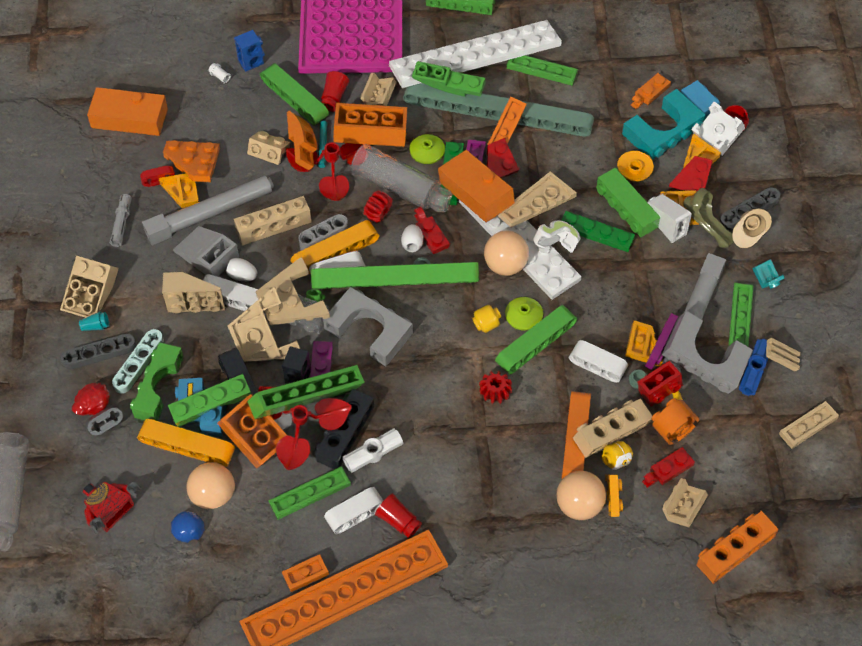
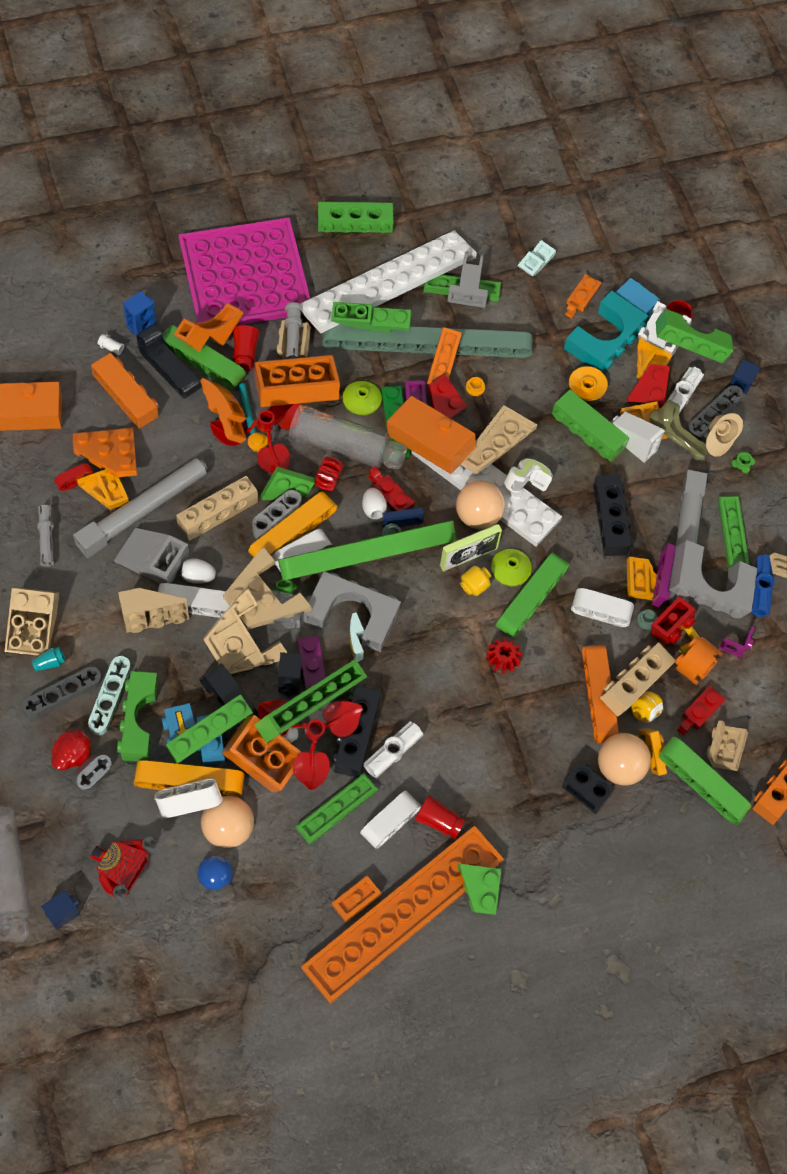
camera: 20 degrees left, 5 degrees up
(45, 531) = (61, 909): none -> dark blue brick
(179, 457) = (188, 798): none -> white beam
(220, 111) = (124, 390): none -> orange brick
(262, 93) = (165, 362): none -> black beam
(267, 147) = (188, 423): tan bracket -> none
(312, 71) = (216, 328): none -> orange arch
(323, 170) = (257, 441): none -> light orange plate
(338, 205) = (285, 480): none -> bright green wing
(364, 348) = (356, 633): none -> light aqua slope
(380, 76) = (293, 324): none -> light grey pin
(420, 584) = (481, 887): none -> bright green wing
(436, 254) = (403, 517): none -> dark blue tile
(487, 288) = (470, 547): none -> tile
(531, 153) = (475, 386): none -> light orange plate
(539, 518) = (584, 791): none -> black brick
(547, 64) = (468, 291): none -> light grey piece
(600, 232) = (566, 462): green plate -> none
(614, 56) = (537, 259): none -> light aqua slope
(624, 307) = (612, 543): none -> black brick
(653, 529) = (704, 780): none -> bright green beam
(720, 420) = (740, 649): none -> magenta bracket
(725, 129) = (675, 330): none -> bright green arch
(725, 183) = (687, 386): none -> white piece
(765, 251) = (743, 457): none -> bright green plate
(767, 275) = (751, 483): teal bracket -> none
(786, 181) = (745, 375): none -> dark blue brick

